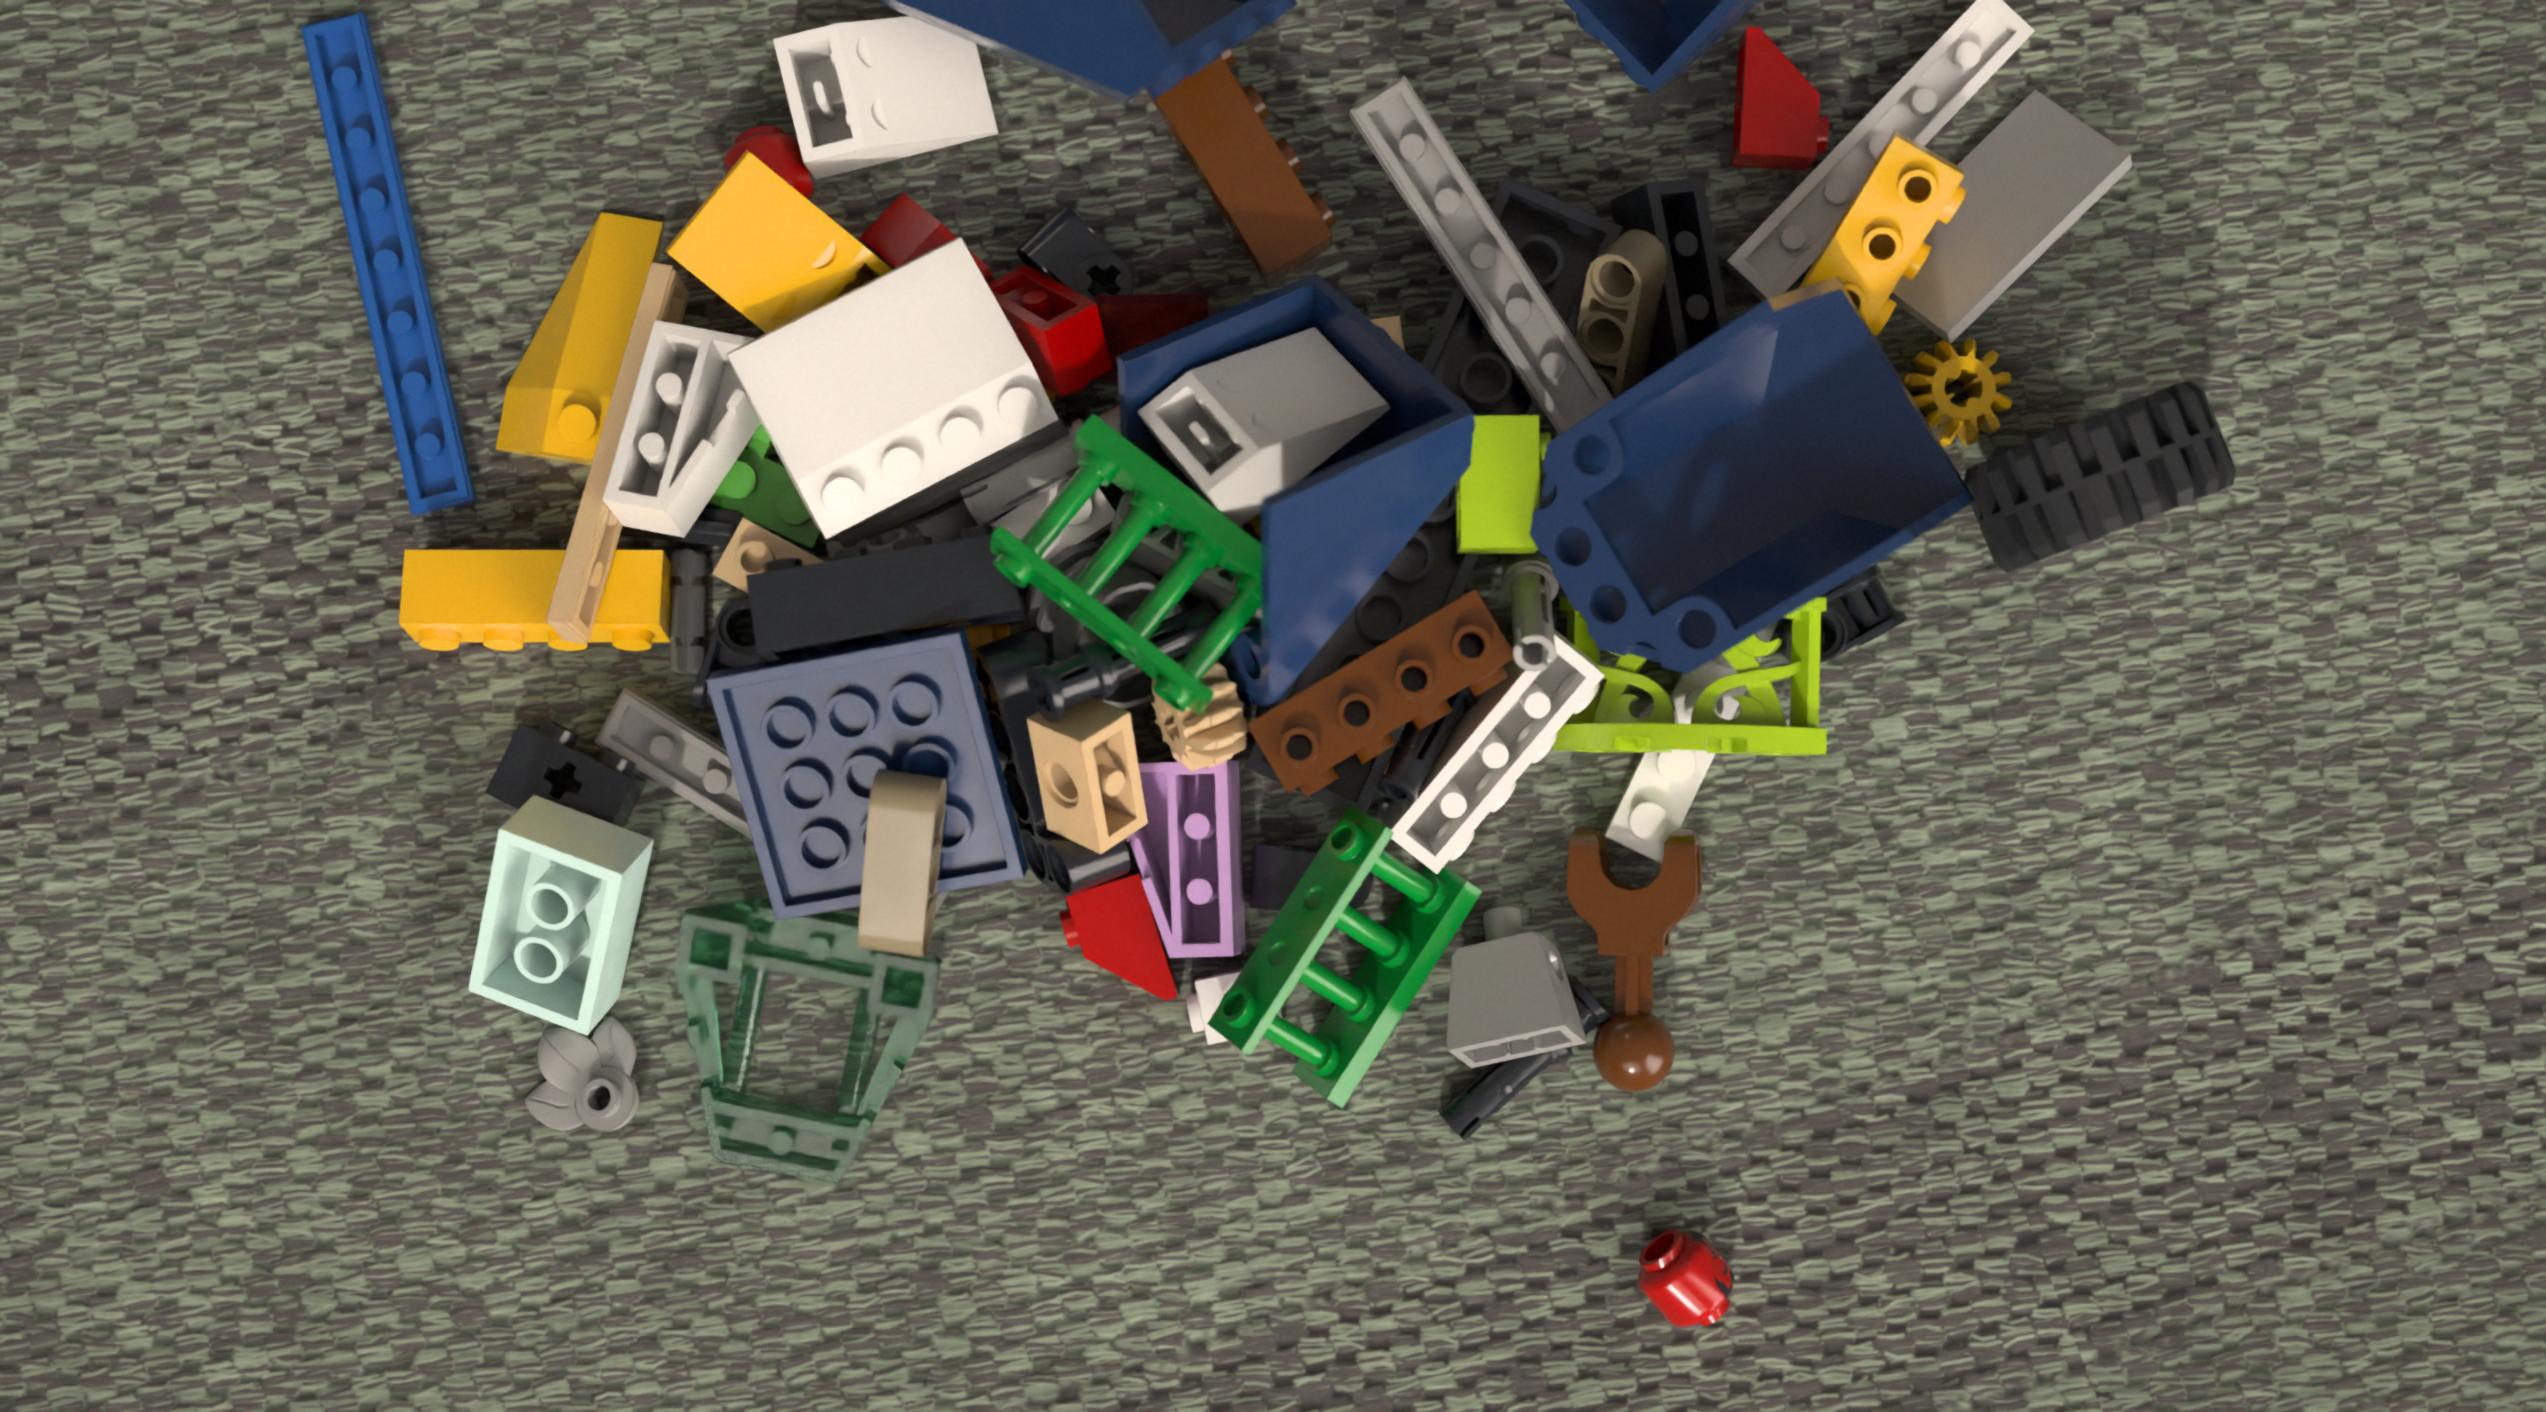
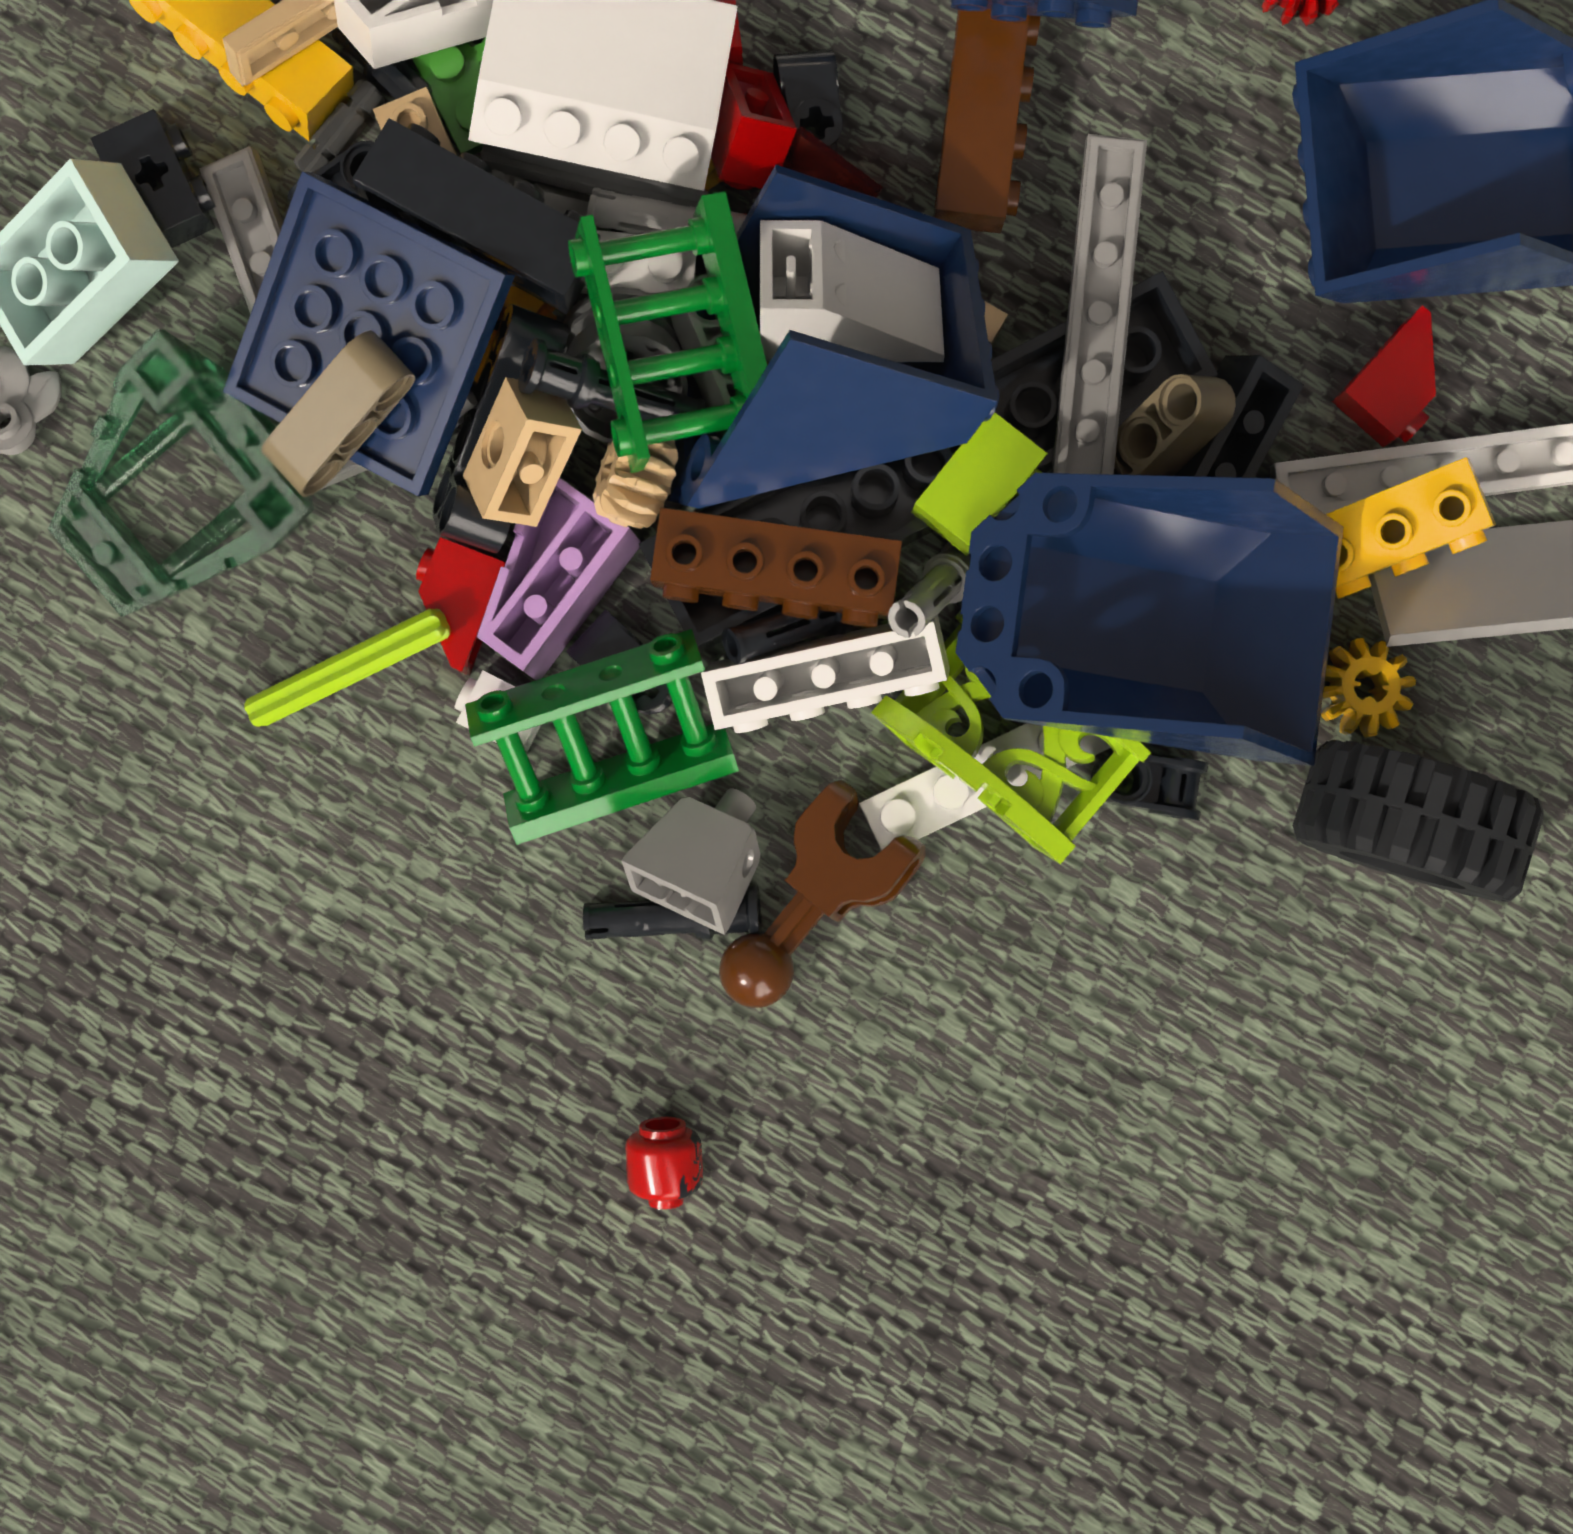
camera: 35 degrees right, 0 degrees up
(1074, 1072) = (347, 667): none -> lime axle

